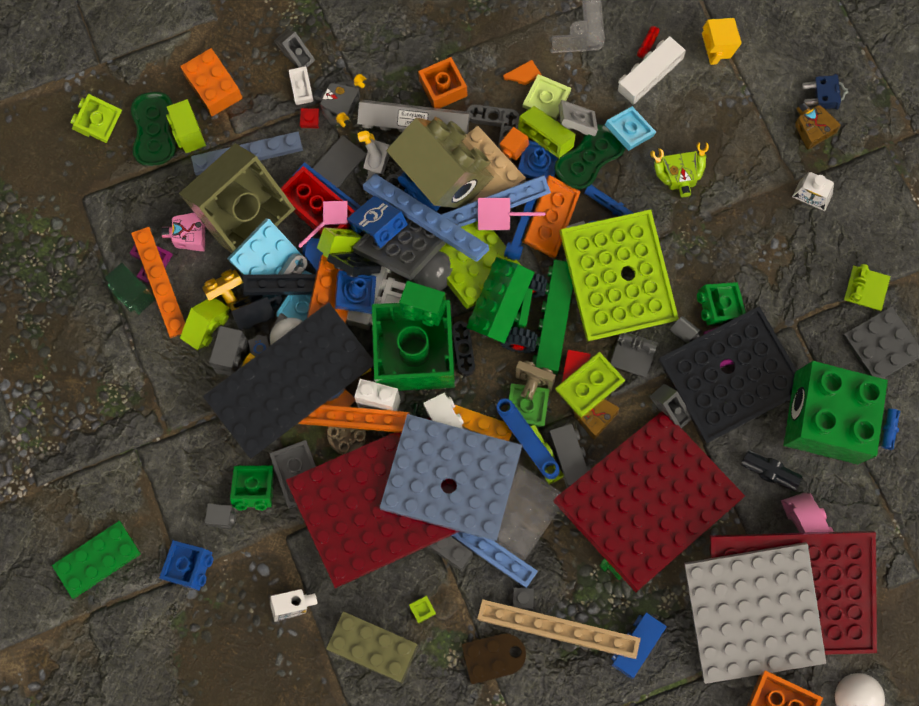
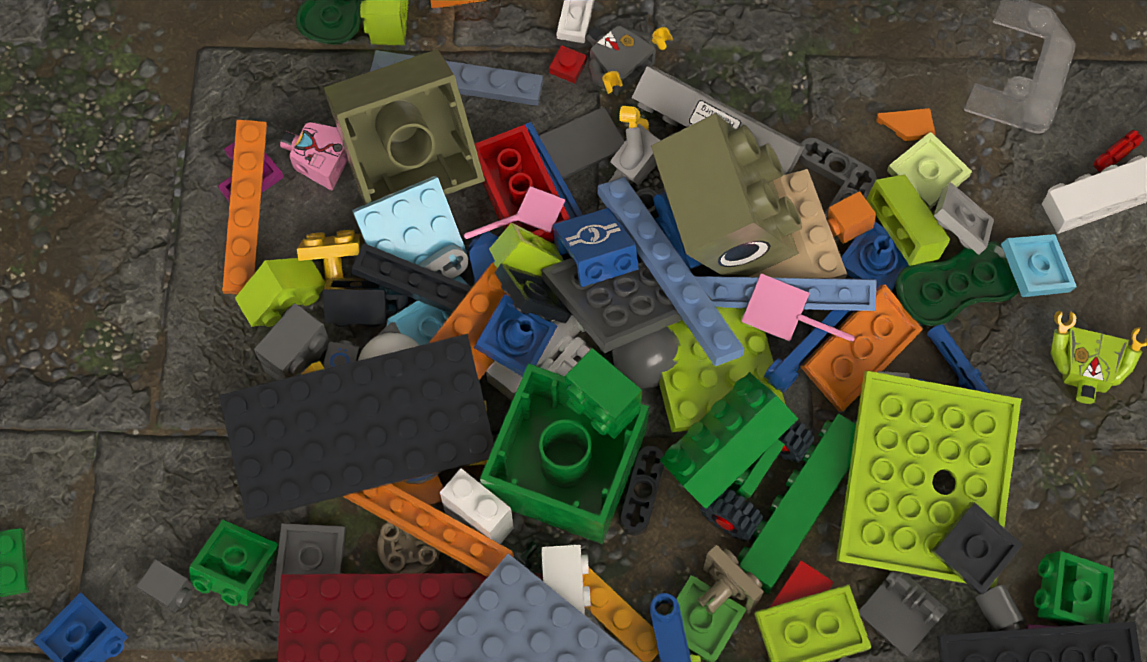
camera: 20 degrees right, 5 degrees down
(129, 289) = (196, 198): clear green brick -> none
(443, 83) = (782, 89): orange brick -> none
(659, 302) = (976, 548): none -> black plate

